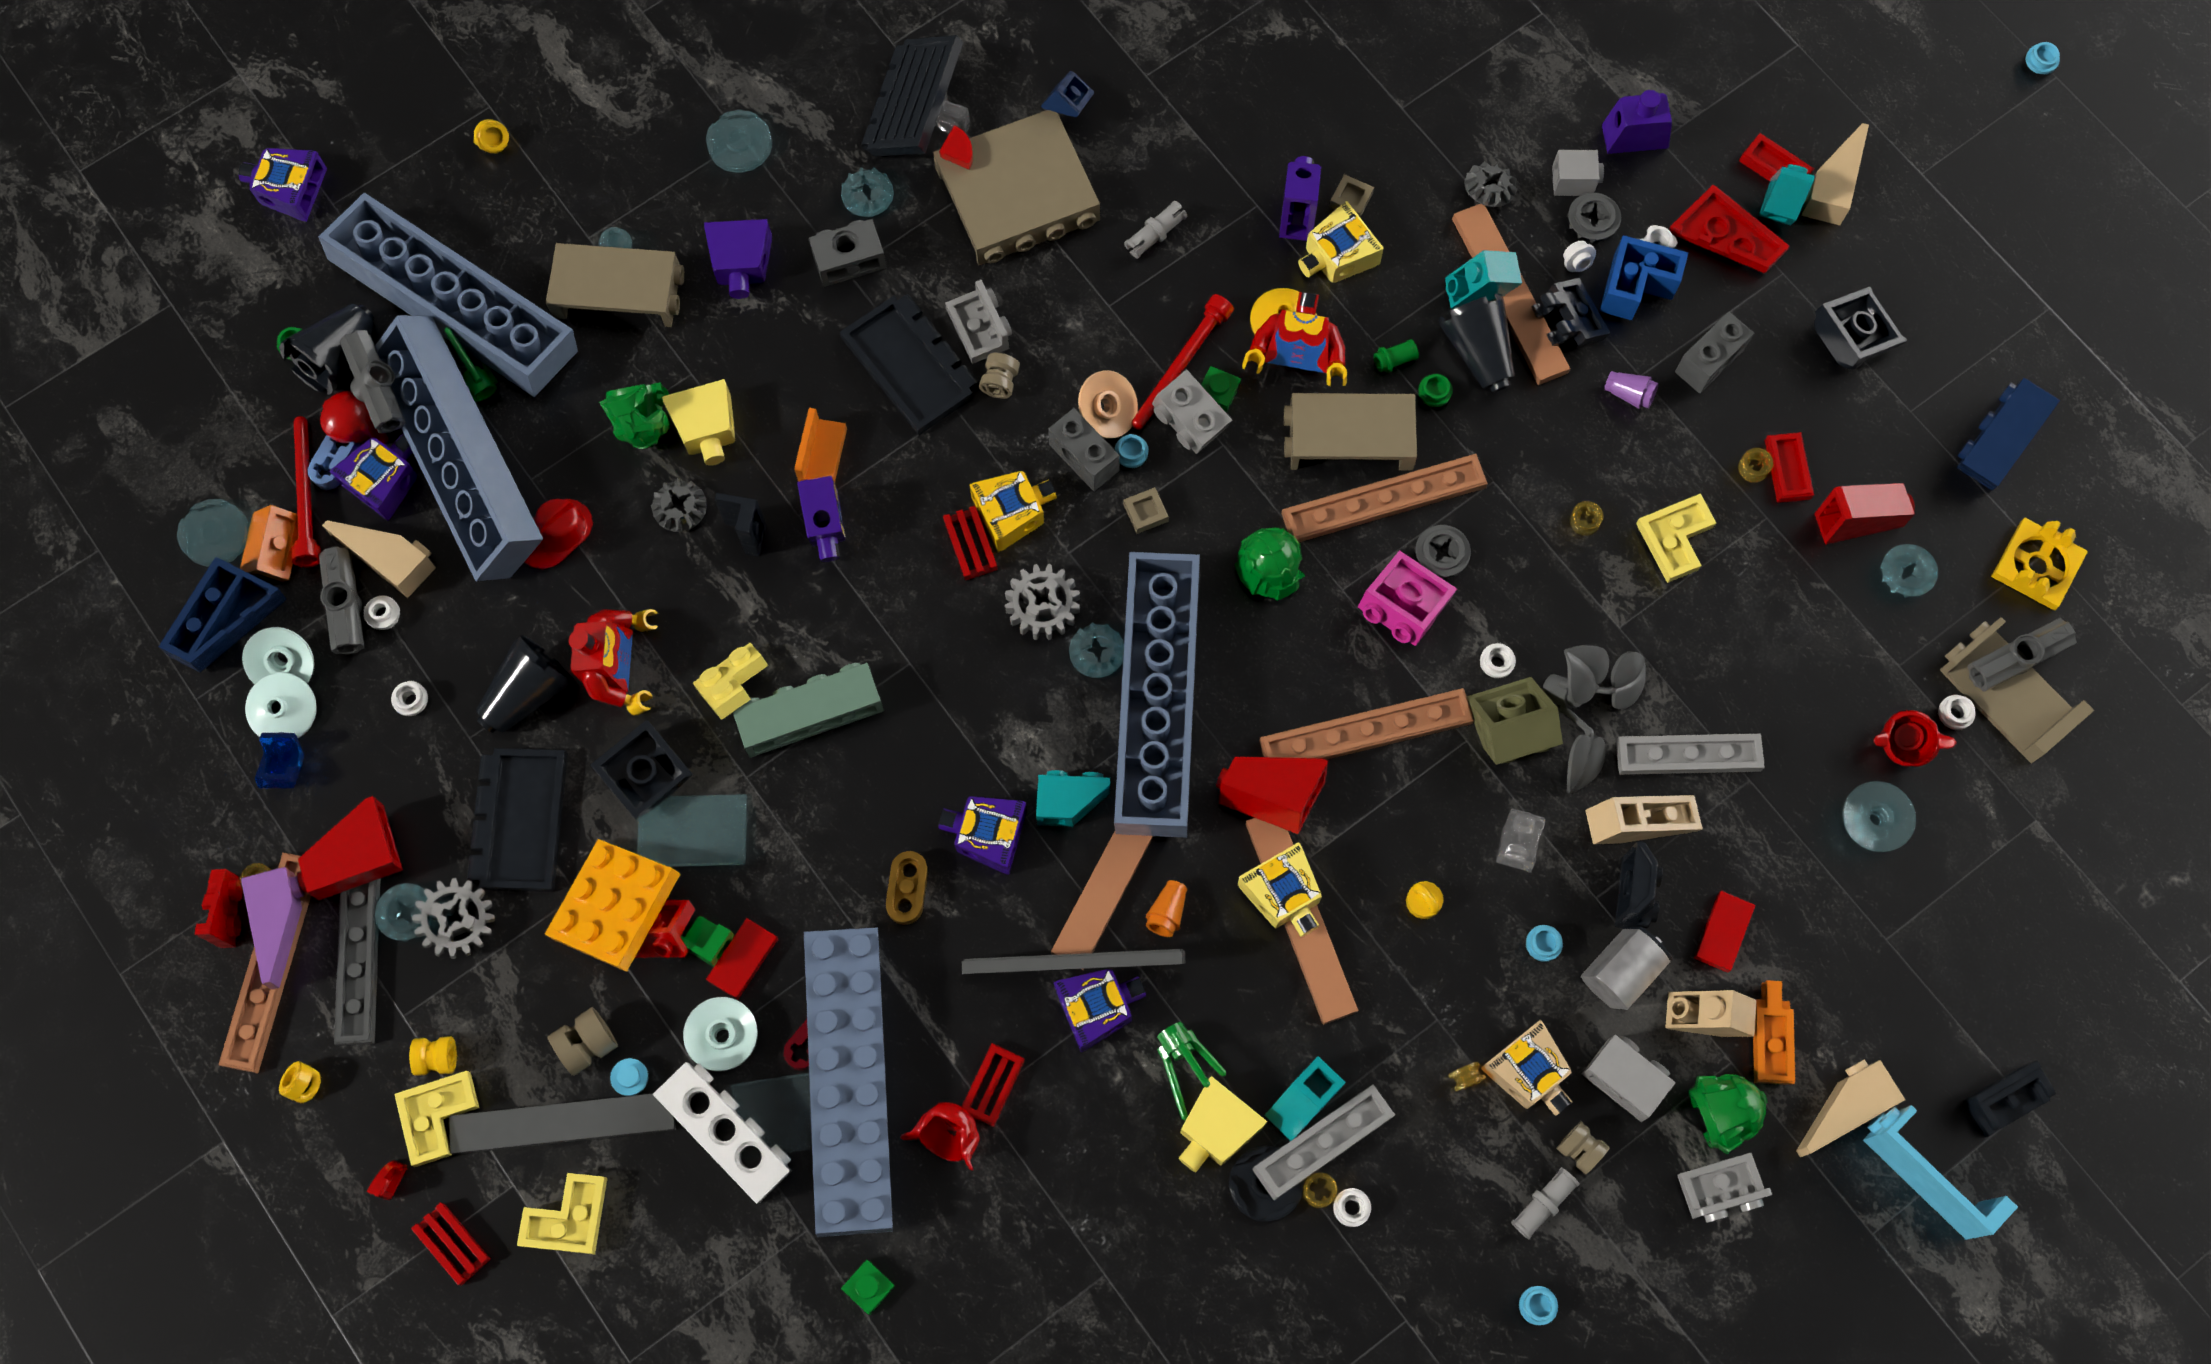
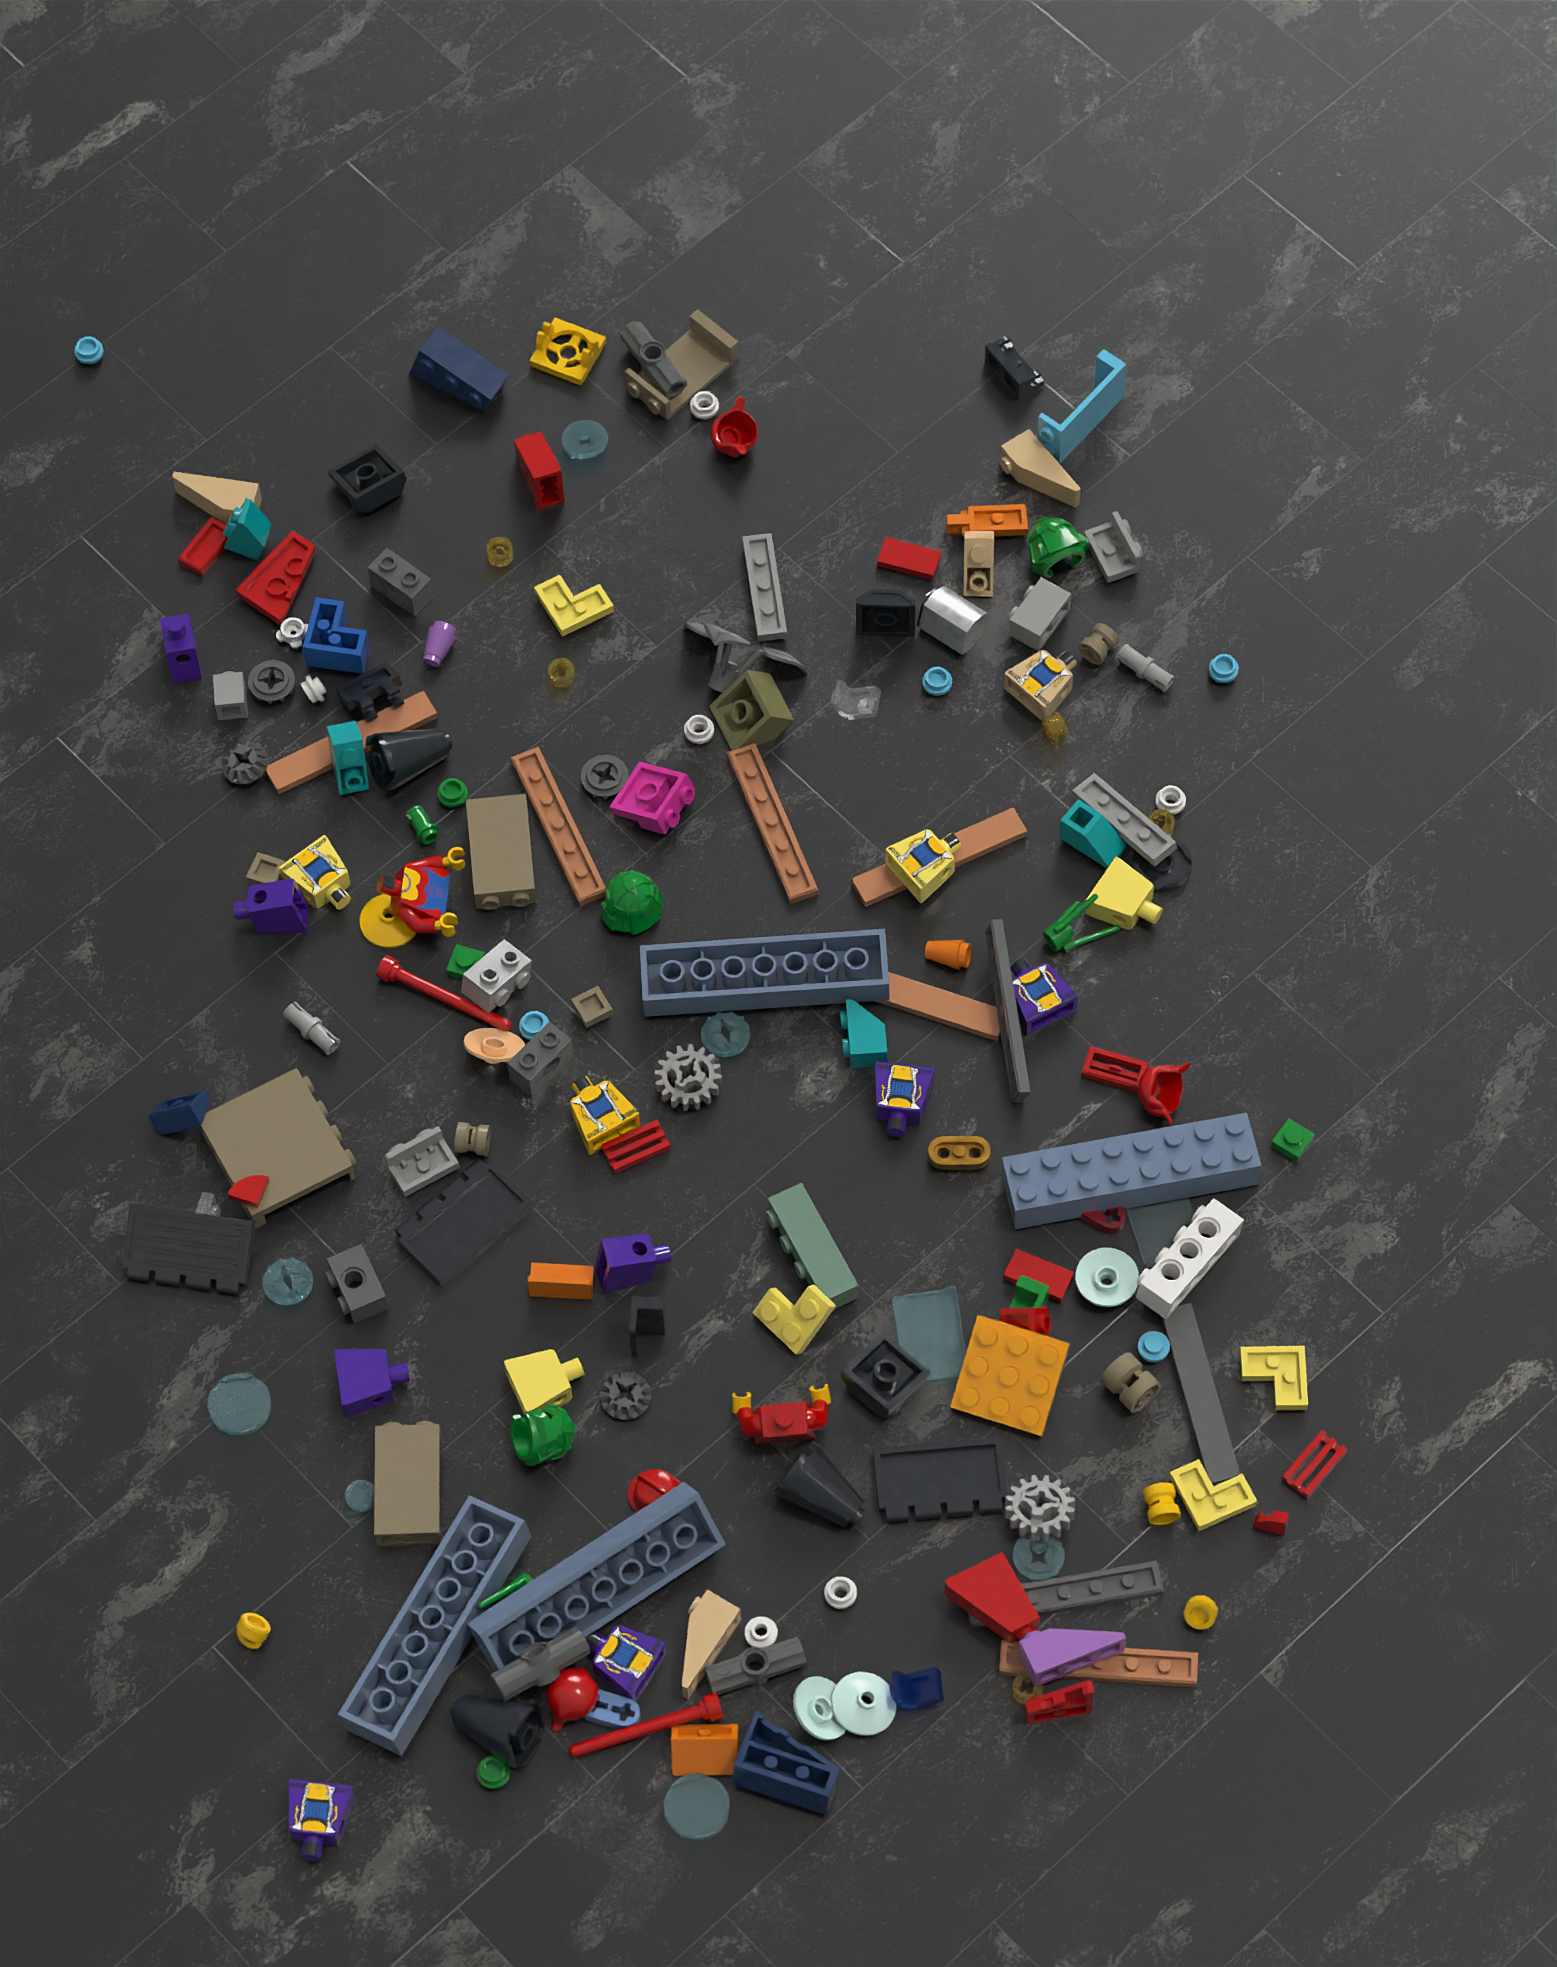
camera: 95 degrees left, 10 degrees down
(1273, 788) = (837, 879): red slope -> none
(1424, 900) = (913, 768): yellow tile -> none
(1642, 818) = (825, 617): tan slope -> none
(1790, 467) = (506, 524): red tile -> none
(1890, 805) = (798, 445): clear light blue dish -> none

